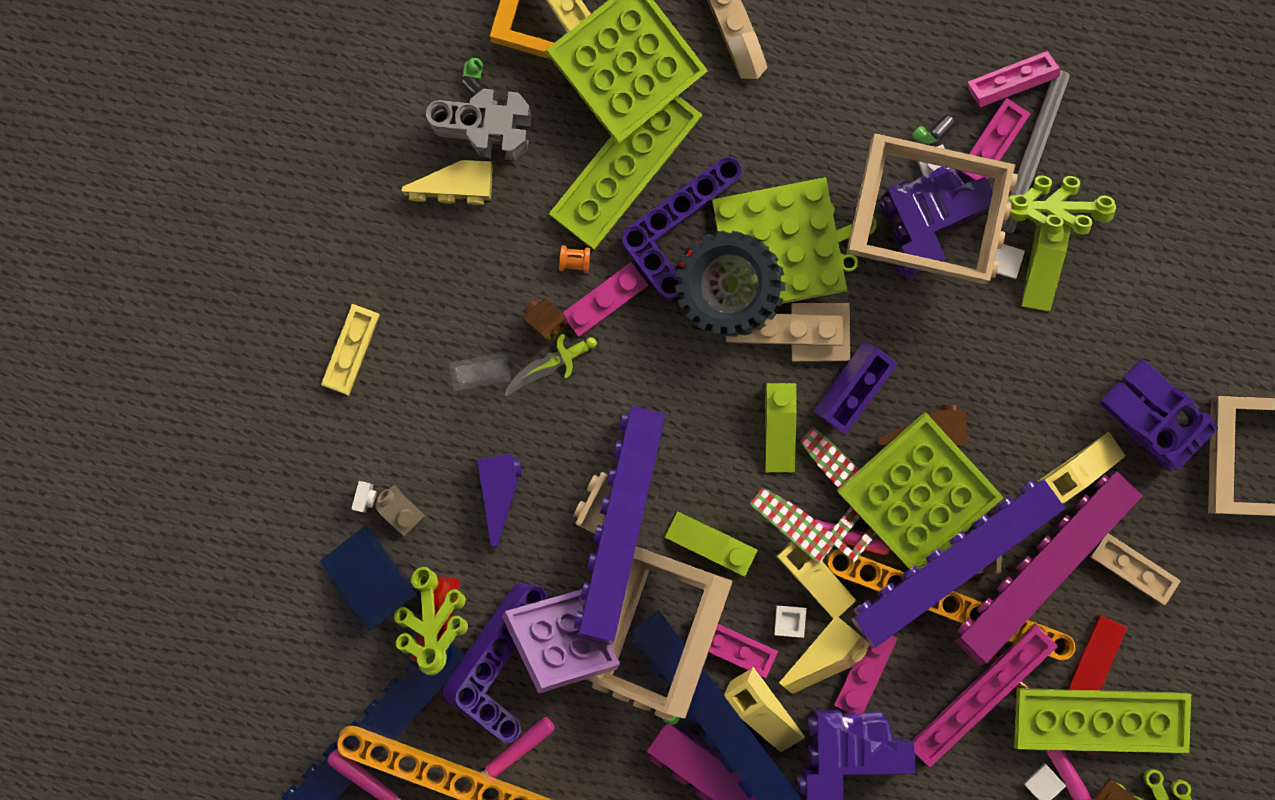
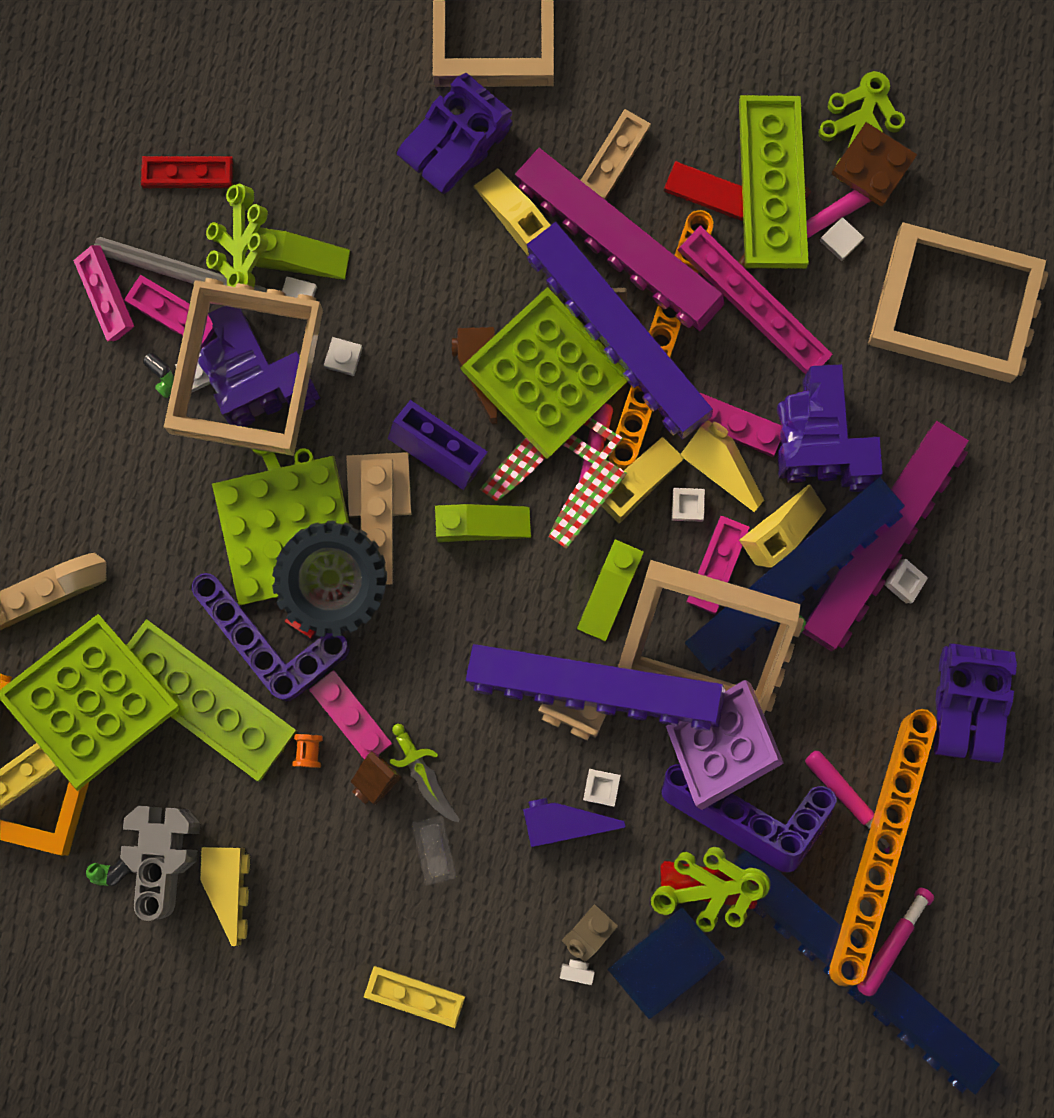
camera: 85 degrees left, 5 degrees down
(529, 527) = (601, 787): none -> white plate
(945, 302) = (343, 356): none -> white plate
(1131, 159) = (187, 172): none -> red tile

